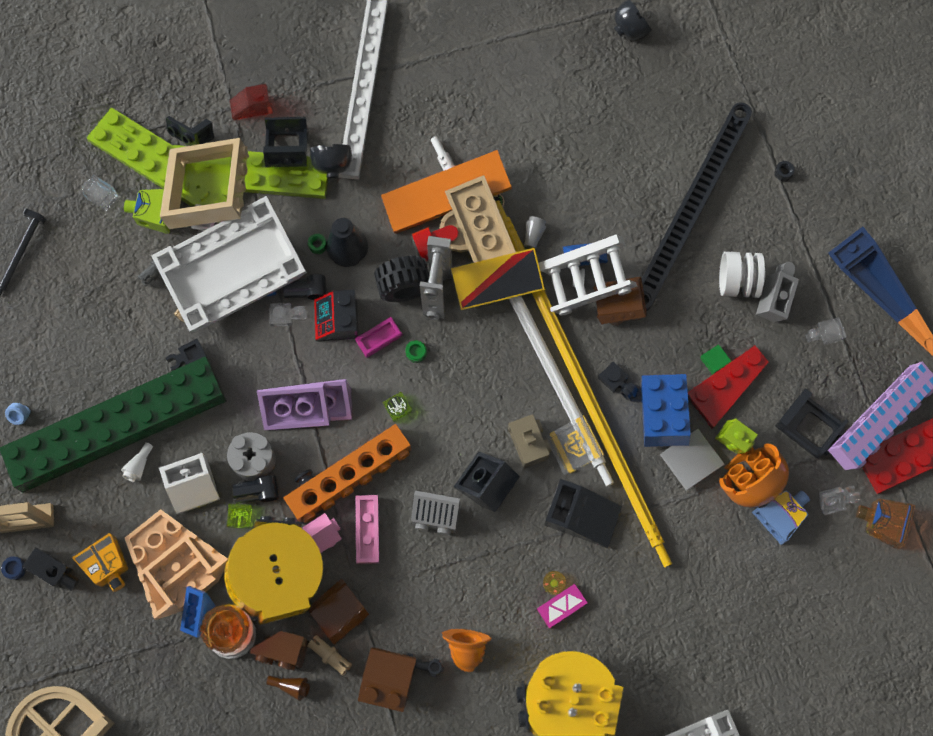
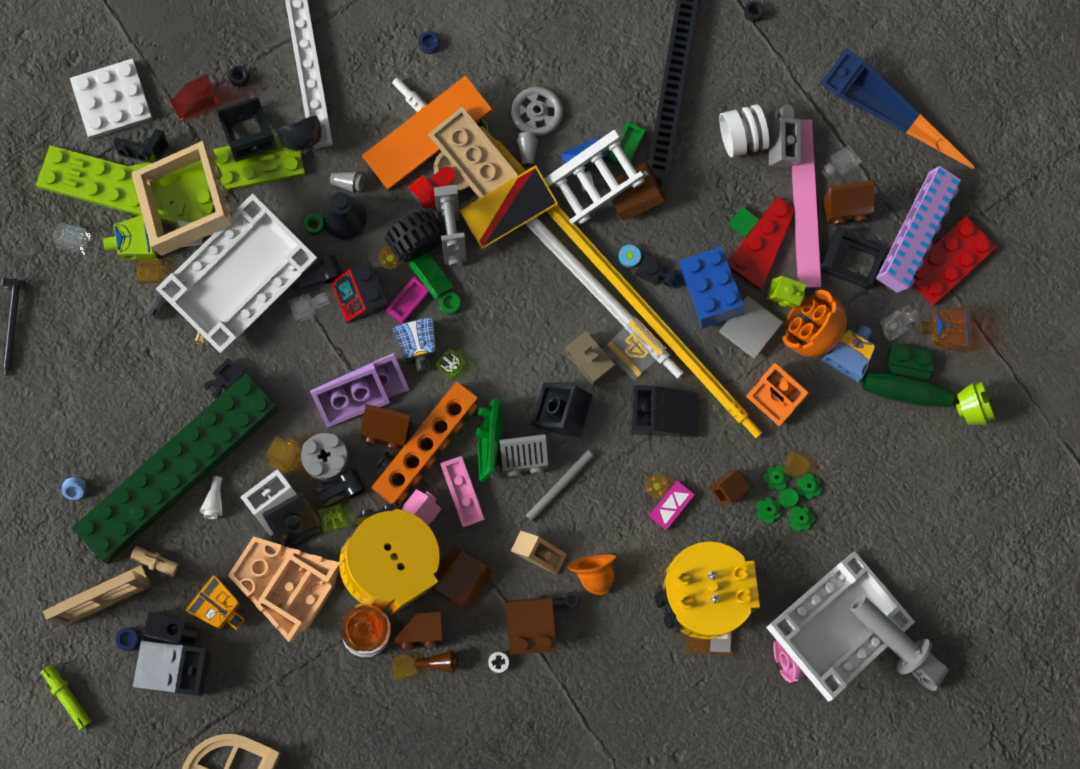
camera: 25 degrees left, 5 degrees up
(42, 609) = (171, 668): none -> slope
(64, 503) = (154, 561): none -> tan pin
(156, 240) = (149, 271): none -> clear yellow tile
(179, 84) = (111, 99): none -> white plate
(196, 605) = (325, 622): blue slope -> none
(200, 506) = (293, 521): none -> black tile
(214, 442) = (284, 454): none -> clear yellow brick
(255, 679) = (403, 667): none -> clear yellow tile
(297, 89) = (238, 69): none -> black axle
(316, 446) = (385, 427): none -> reddish brown slope
(329, 655) = (467, 622): tan pin -> none
(343, 698) = (503, 667): none -> white bush
(362, 214) = (348, 180): none -> light grey cone
(372, 294) = (387, 258): none -> clear yellow tile
(372, 376) = (416, 341): none -> torso
(407, 320) = (431, 275): none -> green tile
(408, 485) = (489, 437): none -> green piece
(420, 610) = (538, 552): none -> tan slope
(464, 551) = (559, 486): none -> light grey bar
(475, 114) = (428, 42): none -> dark blue tile
(554, 186) = (532, 94): none -> light grey plate
(597, 358) = (629, 256): none -> medium azure tile
(624, 607) = (730, 487): none -> reddish brown brick
(630, 254) = (630, 143): none -> green tile
(678, 636) = (788, 498): none -> green plant
(695, 605) = (795, 465): none -> clear yellow tile
(708, 525) = (783, 384): none -> orange brick
(778, 368) = (806, 212): none -> bright pink tile
(823, 370) = (849, 203): none -> reddish brown slope
(832, 557) = (909, 379): none -> dark green plate
(891, 603) = (975, 405): none -> lime cone

